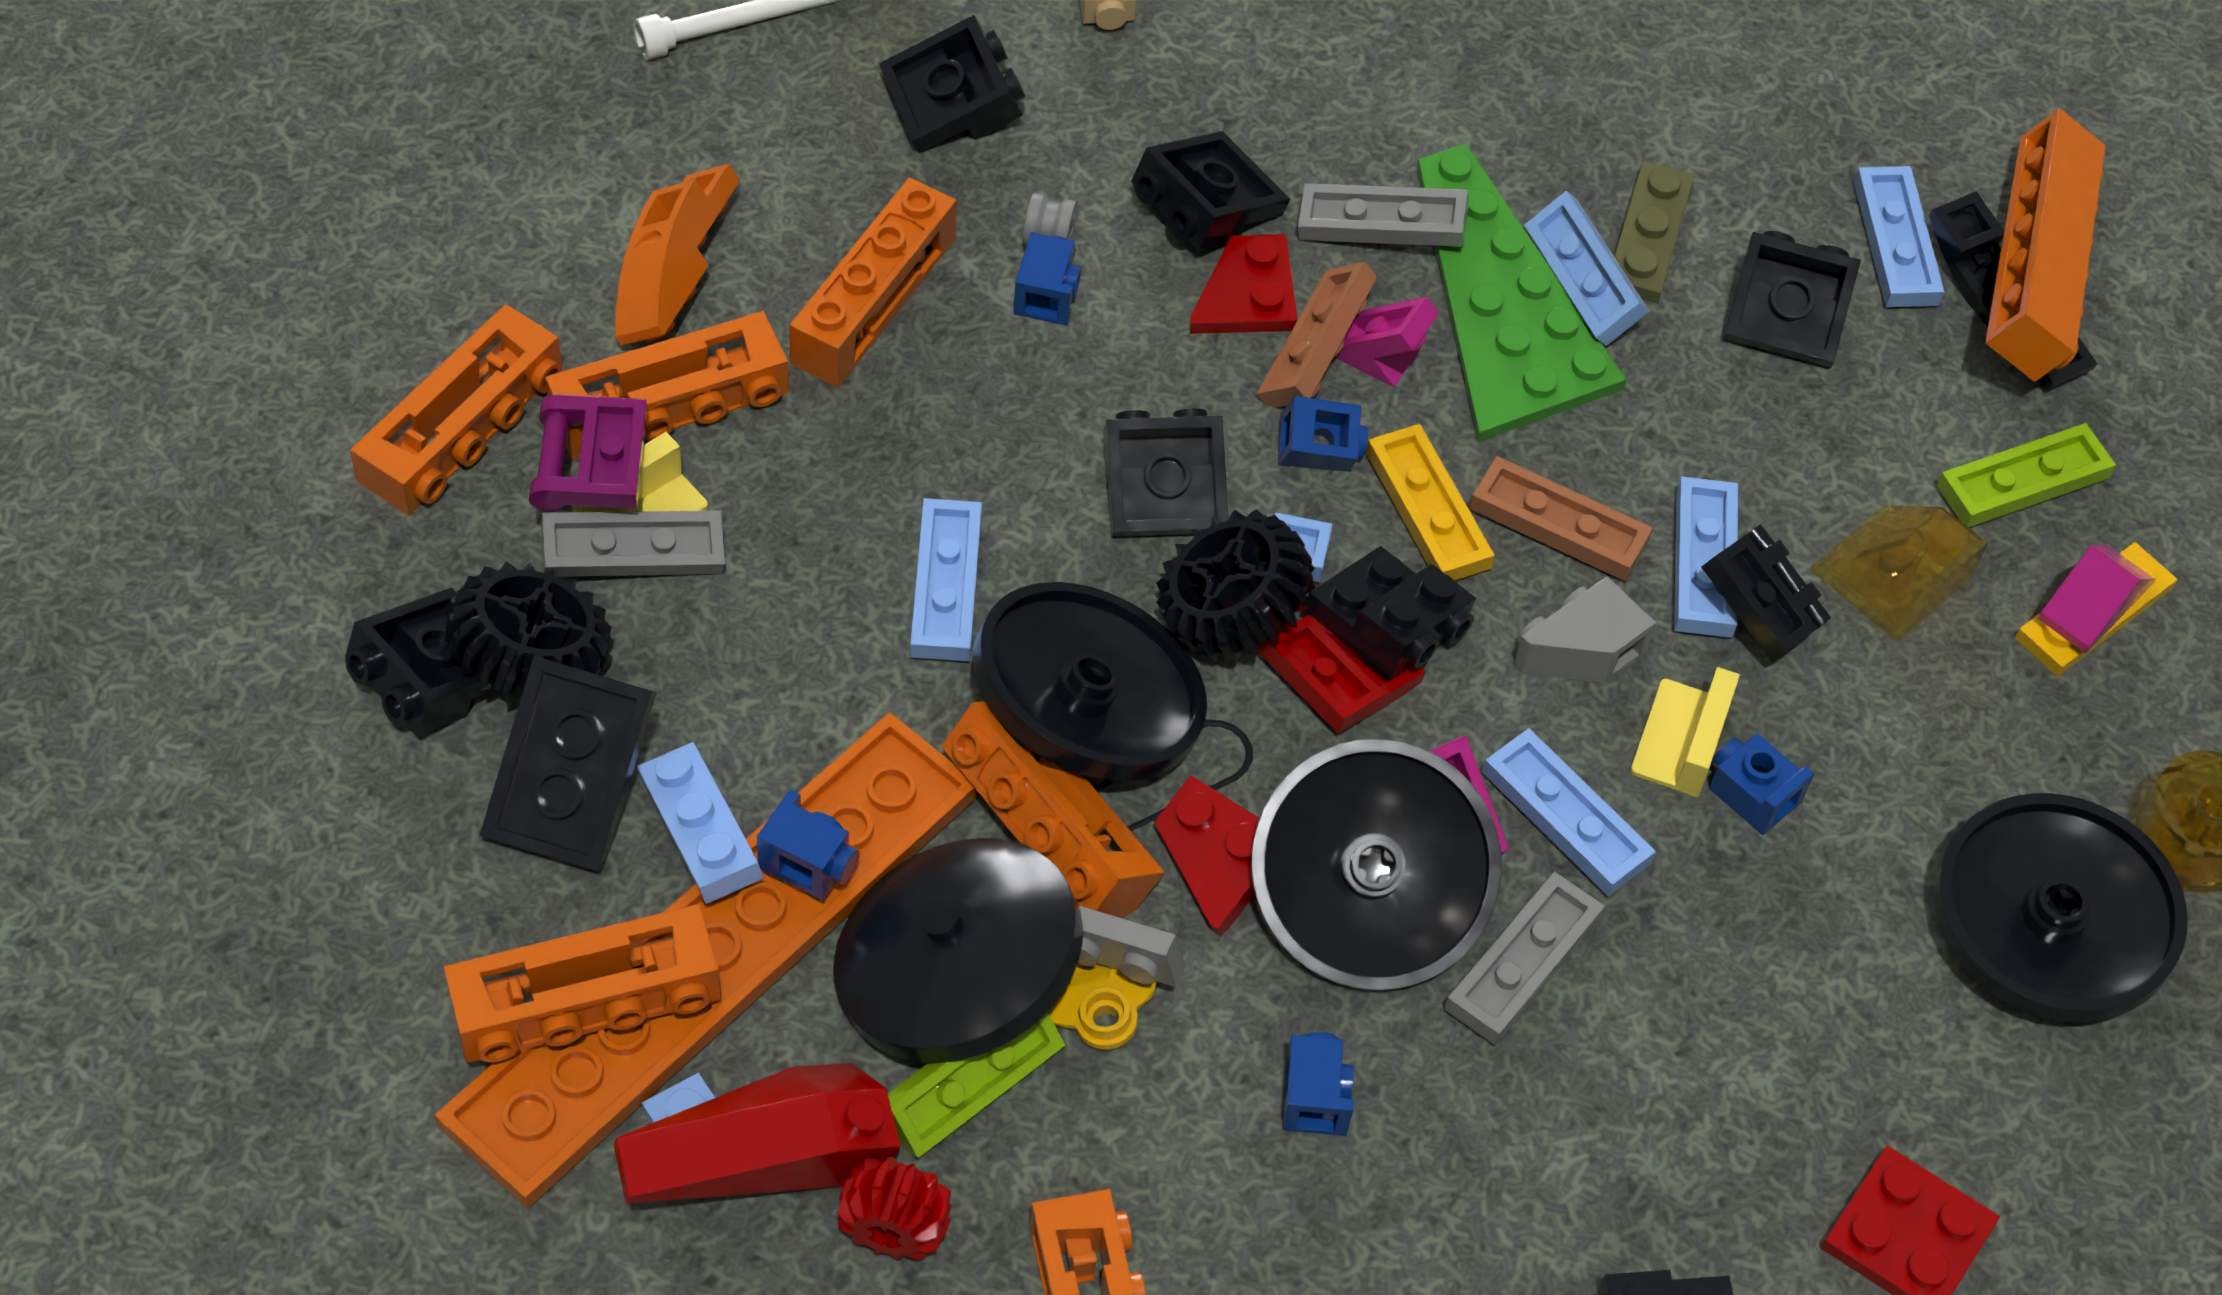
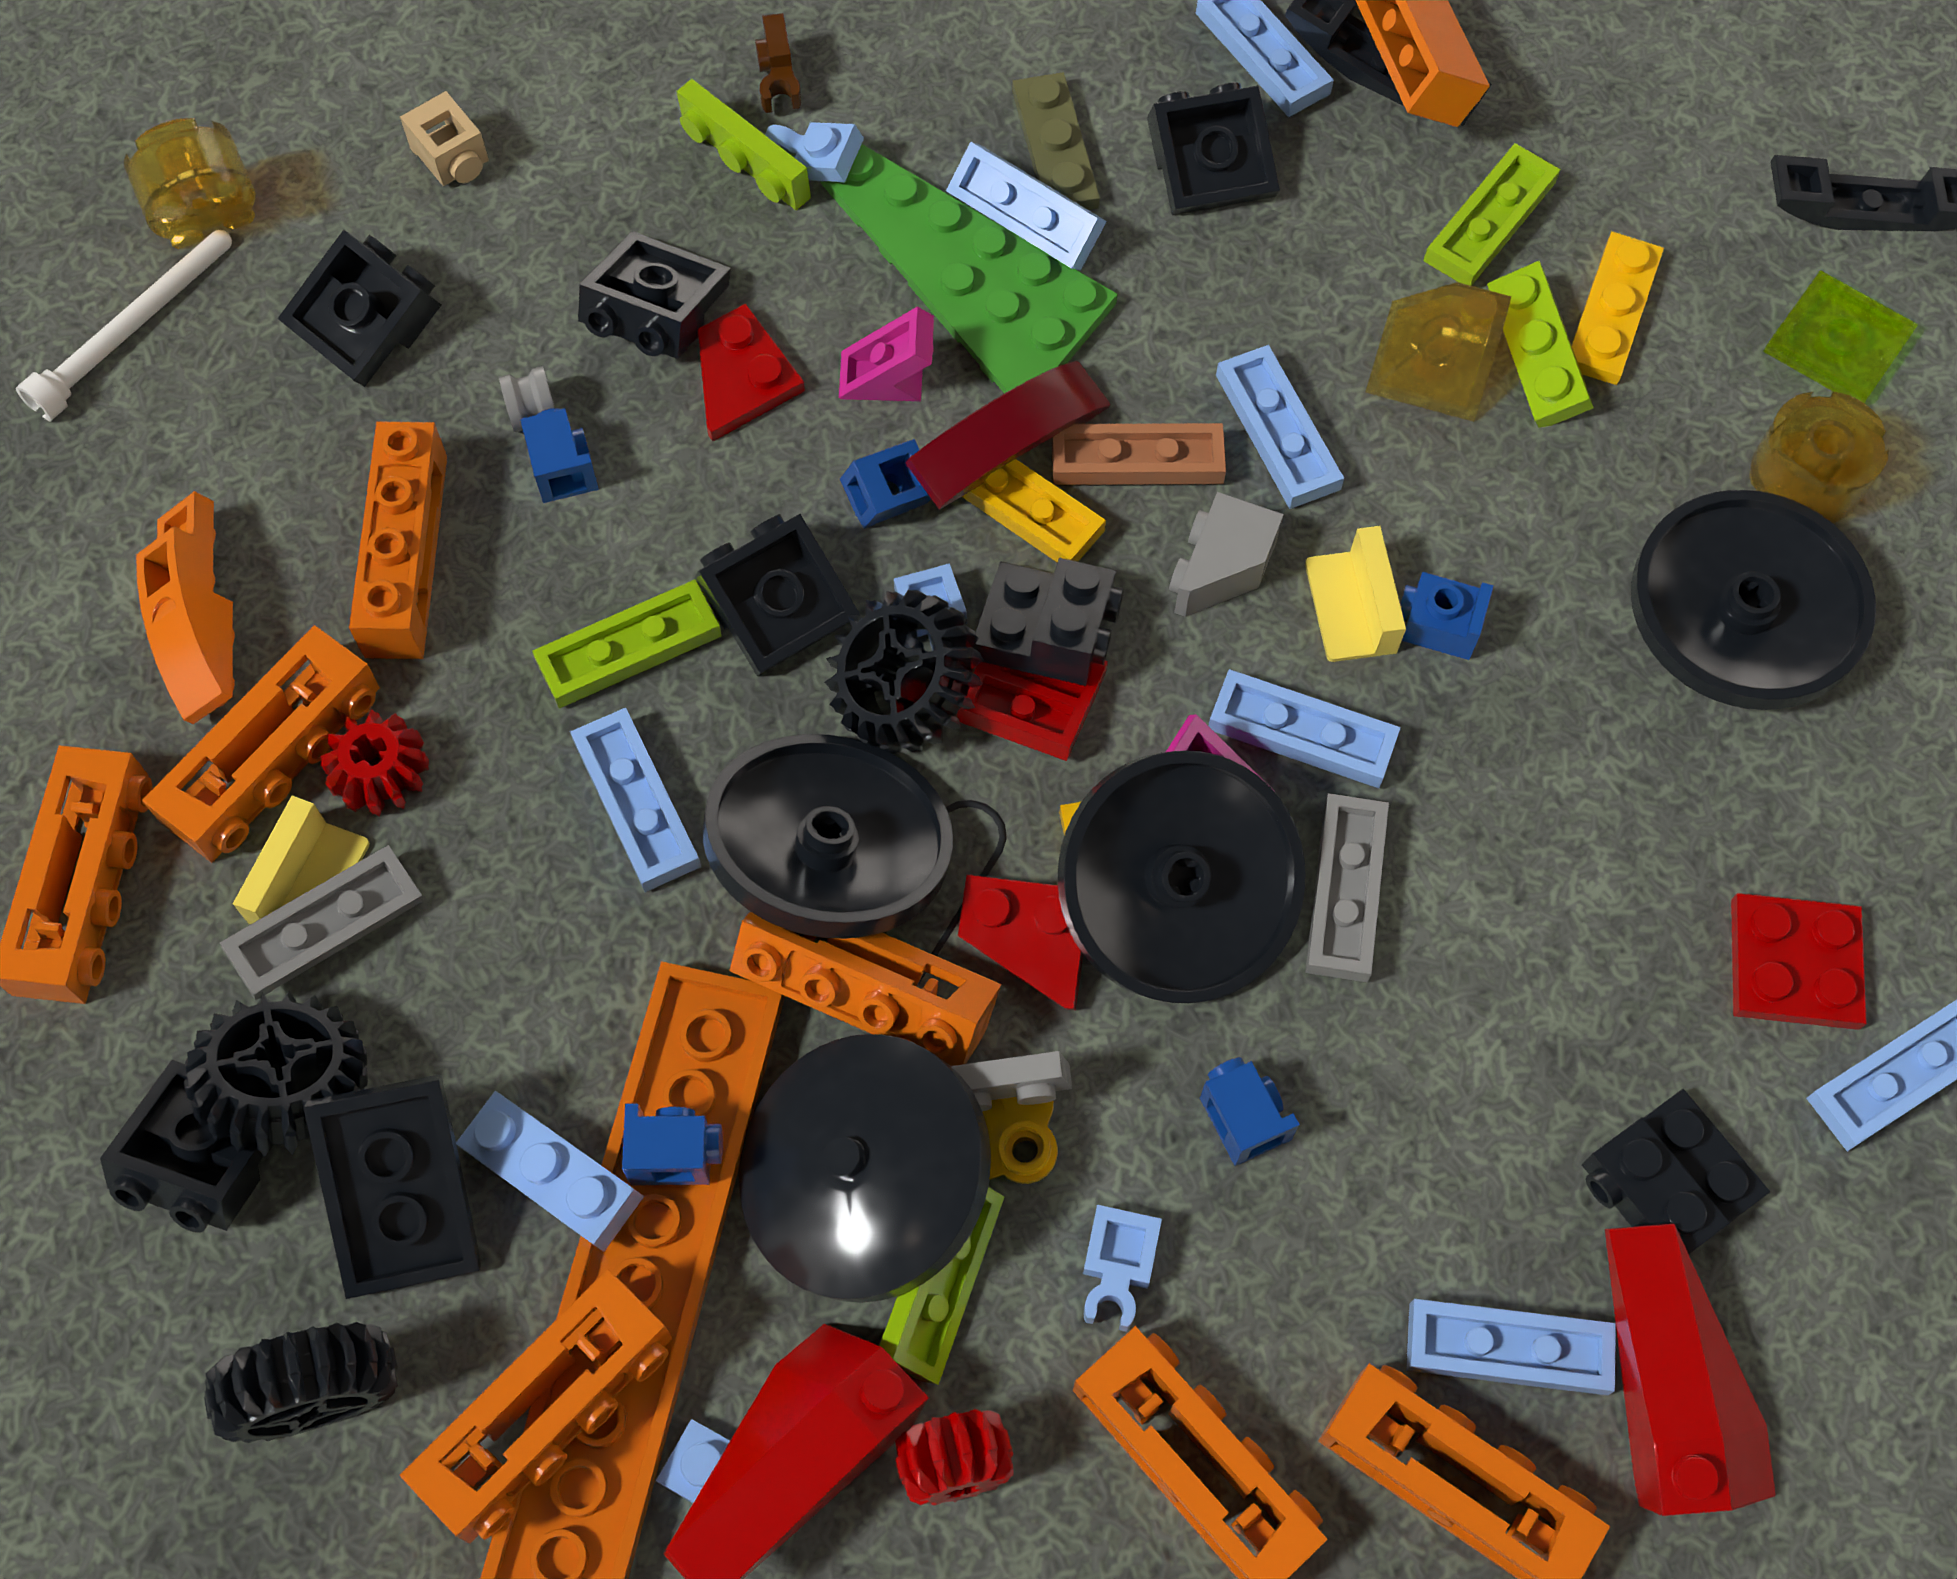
camera: 25 degrees left, 10 degrees up
(408, 868) = (300, 1382): none -> black gear
(608, 455) = (251, 851): magenta plate -> none
(748, 444) = (398, 768): none -> red gear
(1015, 455) = (627, 643): none -> lime plate
(1133, 1140) = (1122, 1255): none -> light blue plate
(1317, 334) = (831, 388): nougat plate -> none
(1362, 106) = (743, 146): none -> lime plate
(1383, 214) = (822, 242): light grey plate -> none
(1426, 141) = (824, 149): none -> light blue plate
(1437, 47) = (775, 56): none -> reddish brown plate
(1450, 435) = (1005, 430): none -> dark red slope
(1766, 592) = (1353, 435): black plate -> none
(2000, 606) = (1541, 347): none -> lime plate
(2095, 596) = (1619, 300): dark pink slope -> none

